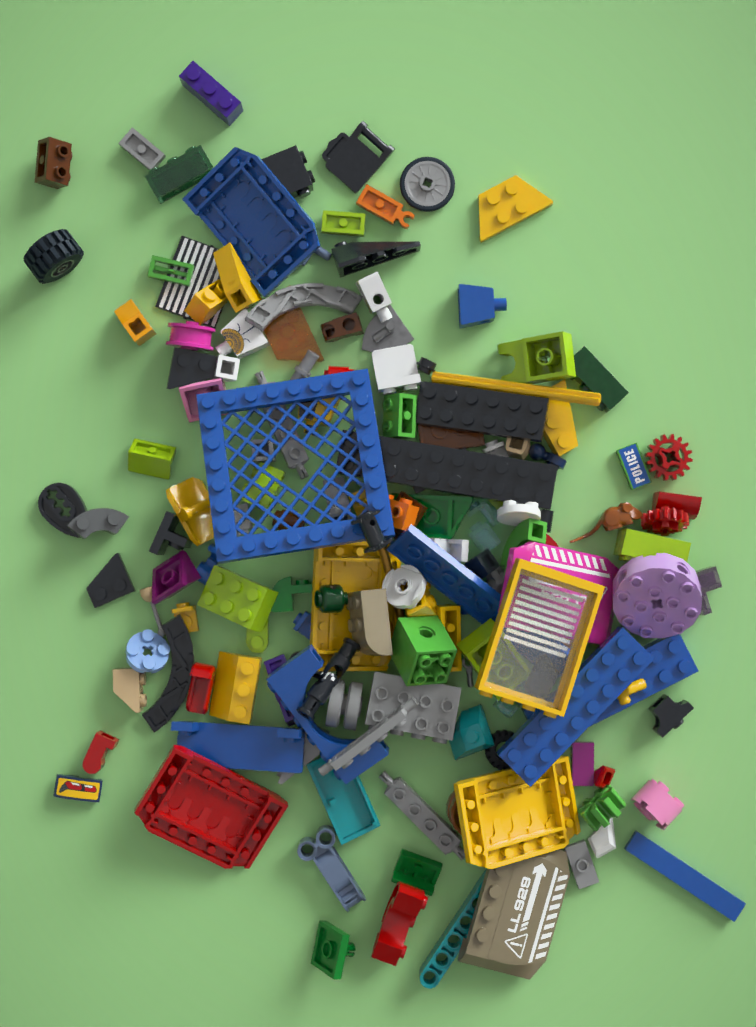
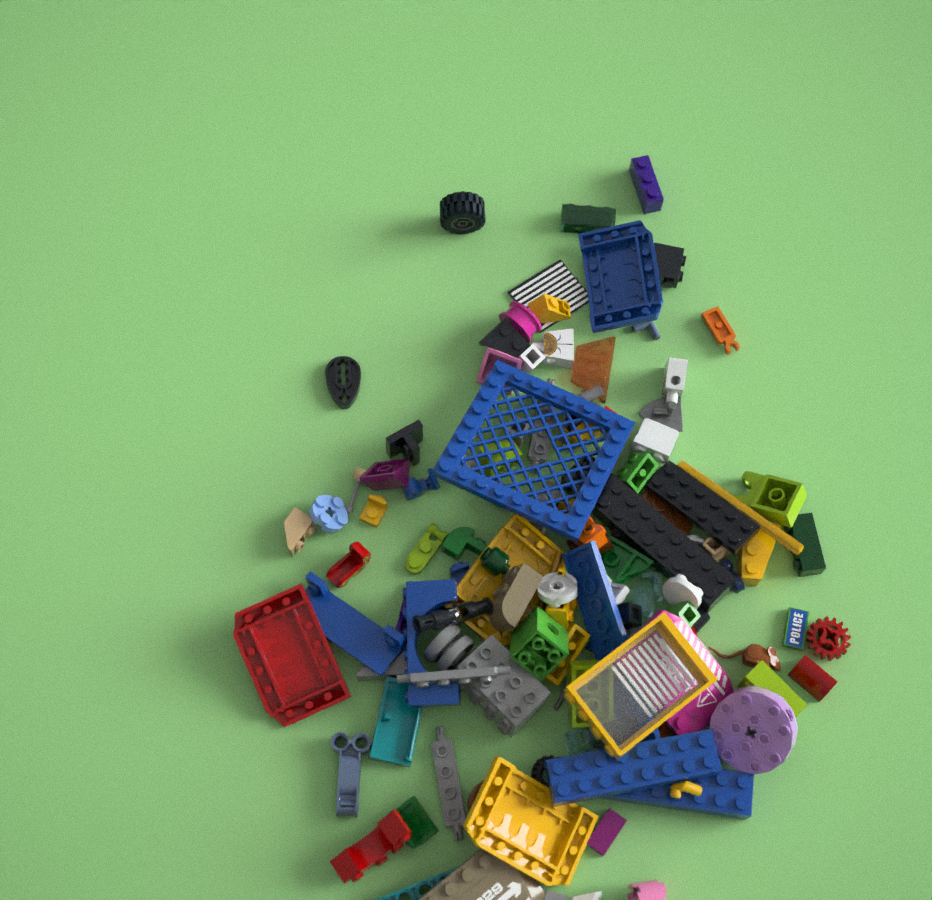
camera: 35 degrees right, 20 degrees down
(53, 163) = (505, 159): reddish brown brick -> none
(77, 788) = (202, 577): slope -> none
(94, 758) = (237, 560): red leg -> none
(97, 520) = (362, 399): dark grey brick -> none
(110, 583) = (337, 451): black wing -> none
(134, 322) = (486, 291): light orange slope -> none
(142, 149) = (572, 189): light grey plate -> none
(151, 458) = (430, 386): lime panel -> none
(152, 267) = (535, 279): bright green tile -> none
(179, 679) = (335, 551): black tile -> none
(193, 509) = (436, 435): yellow shield -> none
(235, 279) = (579, 307): yellow slope -> none
(235, 687) = (375, 584): yellow slope -> none
(237, 598) = (424, 518): lime brick -> none
(300, 296) = (618, 347): light grey tile -> none
(331, 949) = (302, 835): green tile -> none
(342, 327) = (634, 388): reddish brown leg -> none
(343, 223) = (683, 321): lime plate -> none
(353, 160) = (718, 287): black piece -> none
(362, 255) = (679, 346): black wedge -> none
(371, 531) = (563, 521): black hose -> none
(426, 365) = (680, 453): black plate -> none
(432, 171) = (754, 342): light grey wheel -> none
(471, 733) = (531, 743): teal slope -> none
(478, 305) = (747, 436): blue torso -> none
(508, 205) = (815, 386): yellow wing -> none
(601, 807) = (599, 874): bright green gear -> none
(603, 776) = (617, 854): red slope -> none
(664, 521) = (798, 679): red gear -> none
(669, 714) = (704, 838): black brick -> none
(709, 580) = (801, 754): clear purple brick -> none

